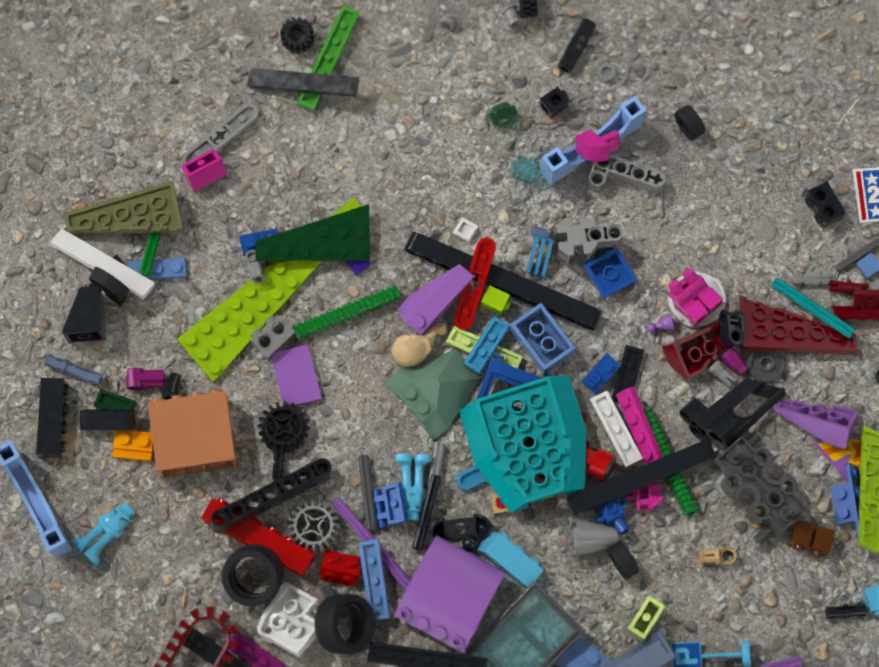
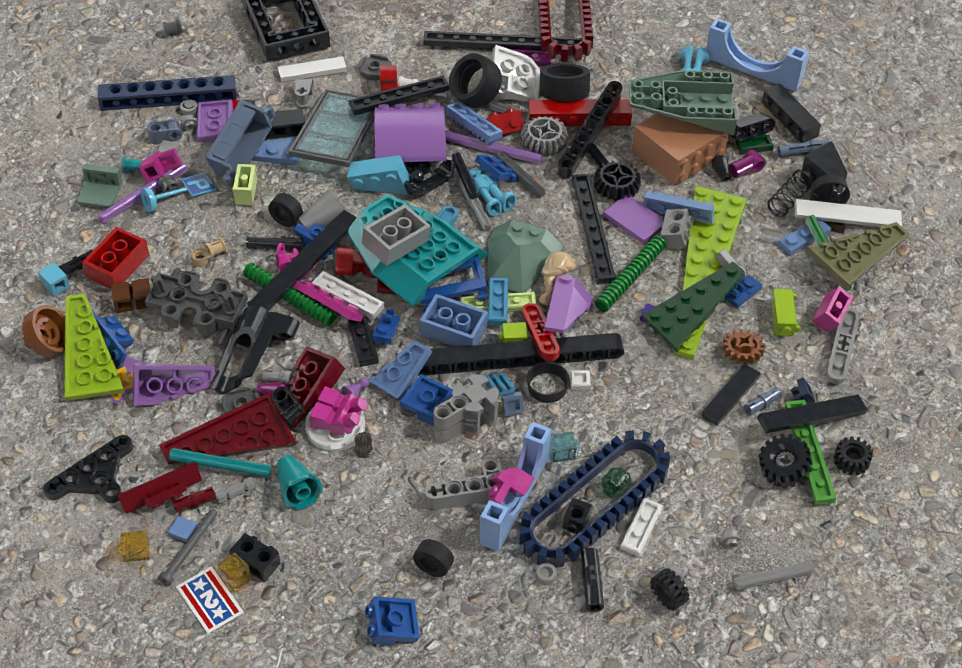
camera: 150 degrees right, 25 degrees down
(110, 329) = (796, 183): none -> black piece
(168, 449) = (688, 97): none -> sand green wedge
(244, 195) = (784, 312): none -> lime brick
(247, 346) = (660, 203): none -> medium blue gear
(289, 109) = (804, 390): none -> dark blue tile
(301, 180) = (743, 347): none -> dark orange gear
(329, 123) = (762, 401): none -> sand blue pin
(341, 389) = (593, 229): none -> black tile
(349, 146) = (730, 394): none -> black tile
(357, 42) = (777, 452): none -> black bush
(498, 221) = (552, 368): none -> black tyre
(507, 71) = (641, 527): none -> white tile
(555, 429) = (395, 234): none -> light grey brick
(603, 109) = (574, 483): none -> dark blue piece
(616, 312) = (400, 374): none -> medium blue wing
(651, 533) = (264, 242): none -> black pin
(687, 255) = (363, 441): none -> clear smoke bush
(747, 93) = (392, 620): none -> blue plate
(760, 254) = (297, 483): none -> teal cone
(810, 587) = (115, 258): none -> red brick
(848, 196) = (236, 571): none -> clear yellow bracket

